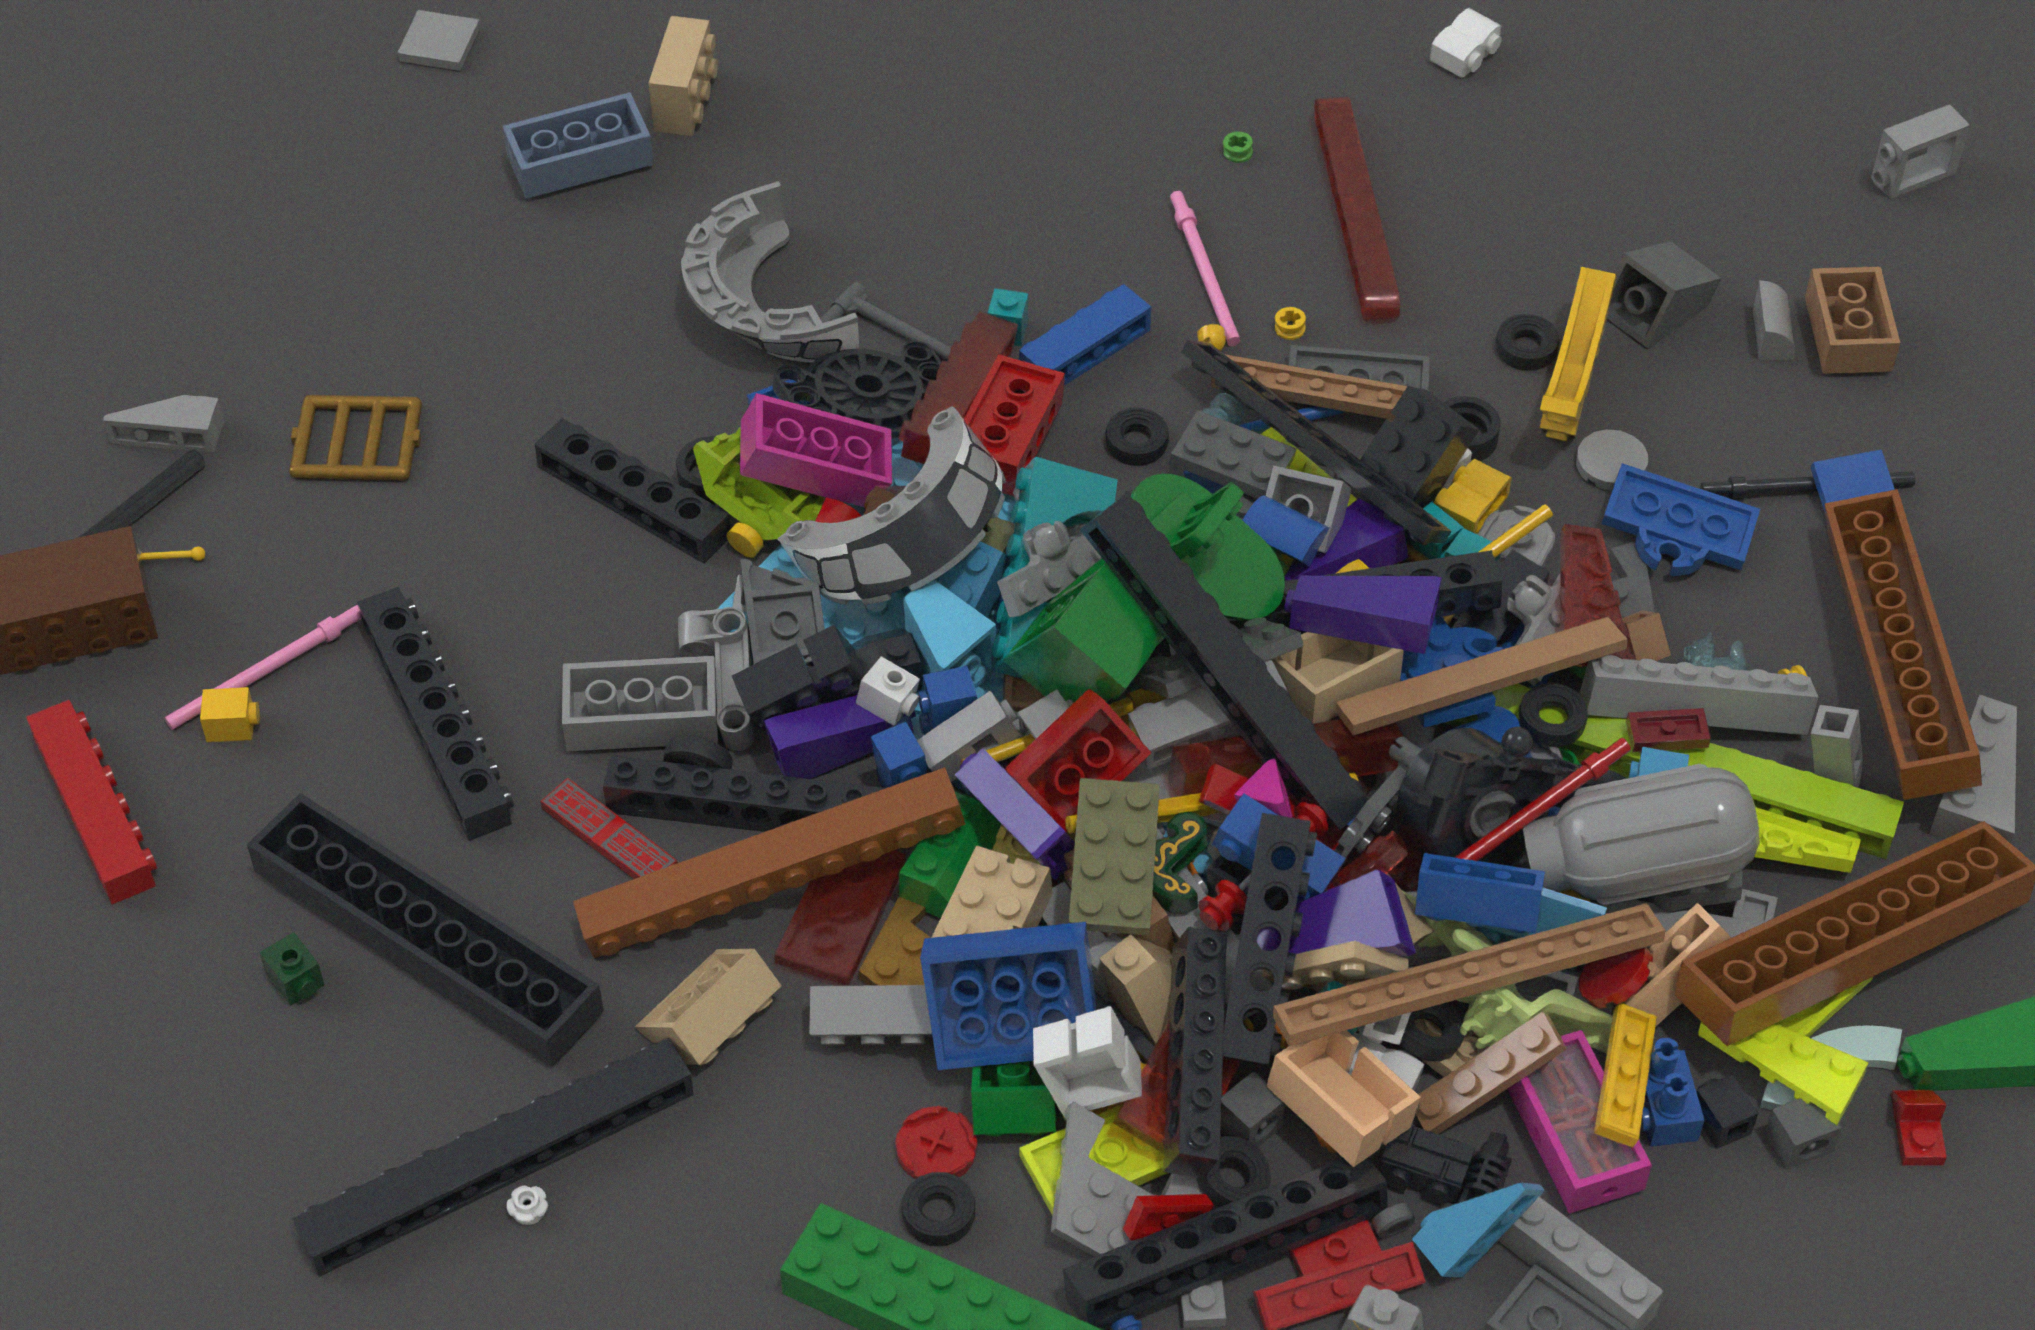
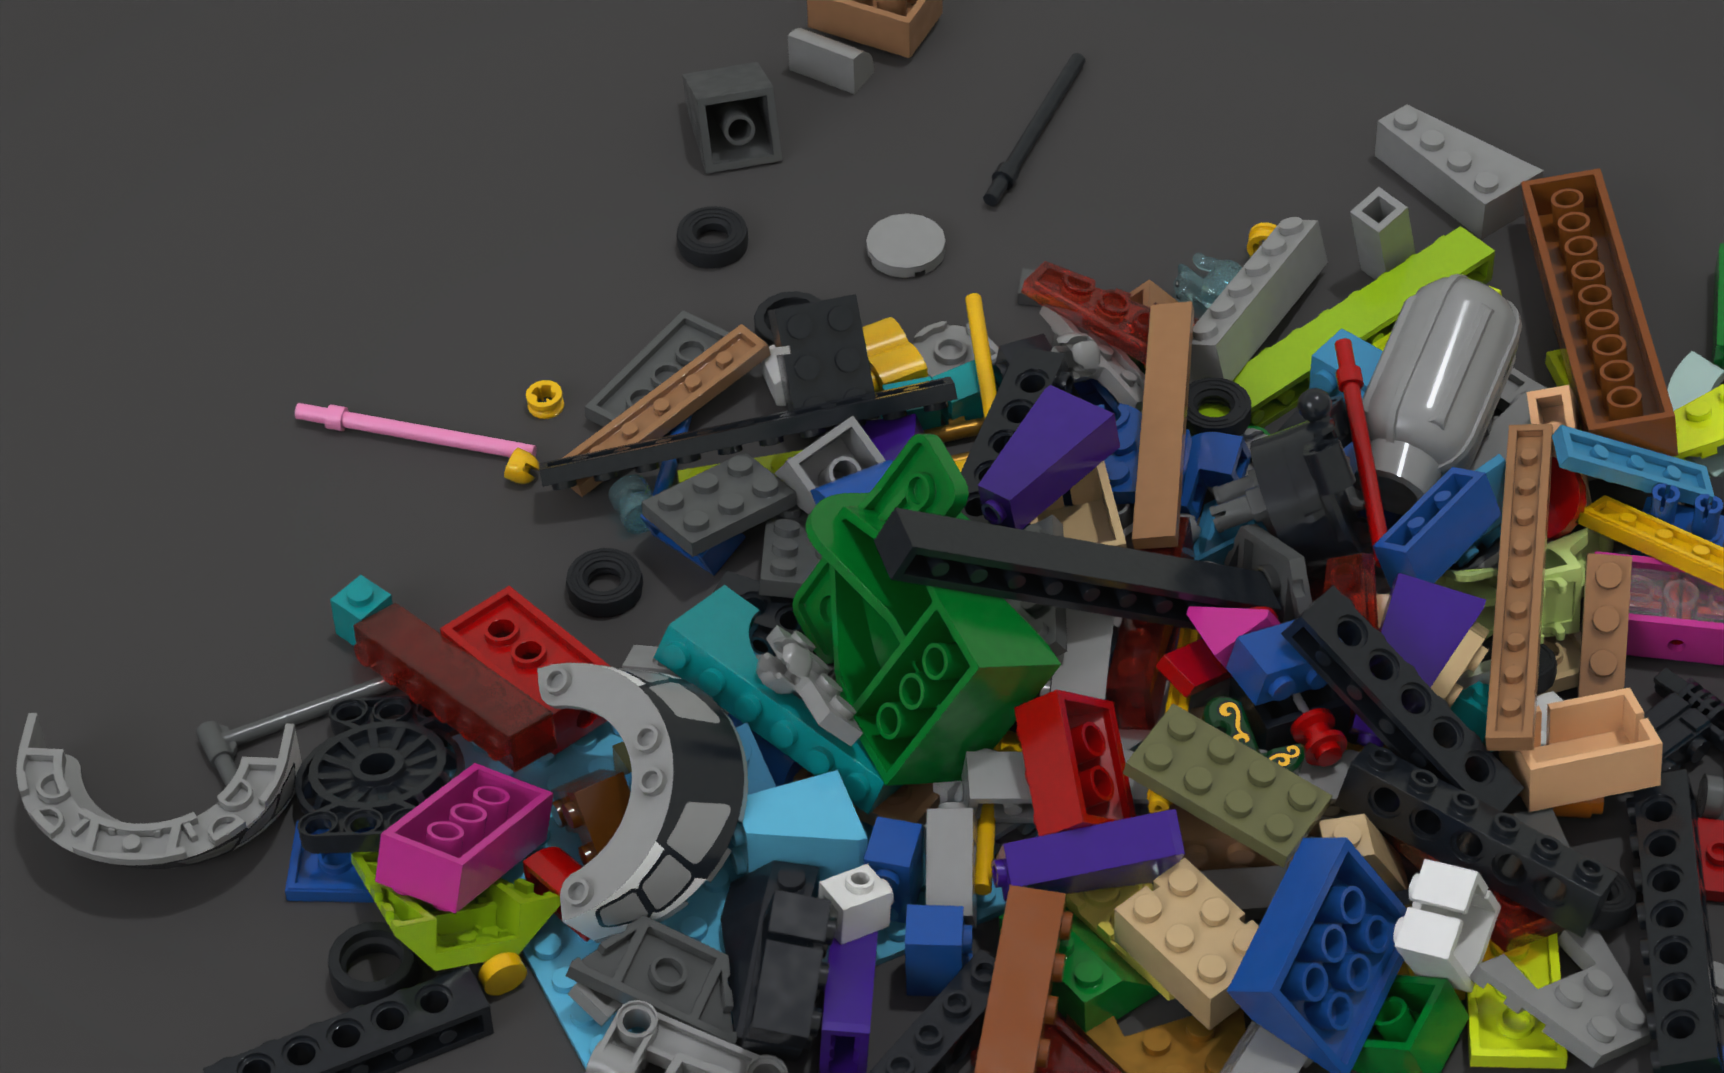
camera: 60 degrees left, 5 degrees down
(1091, 334) = (440, 555): blue brick -> none
(1159, 1212) = (1627, 961): red plate -> none
(1242, 147) = (265, 326): bright green bush -> none
(1356, 209) = (436, 279): clear red beam -> none
(1466, 43) = (286, 102): white brick -> none
(1577, 354) = (751, 184): yellow arch -> none
(1668, 729) = (1287, 337): dark red plate -> none
(1679, 521) = (1022, 229): blue plate -> none
(1679, 1014) = (1629, 464): none -> dark azure plate
(1851, 476) = (1072, 97): blue tile -> none
(1902, 646) = (1293, 137): dark orange brick -> none

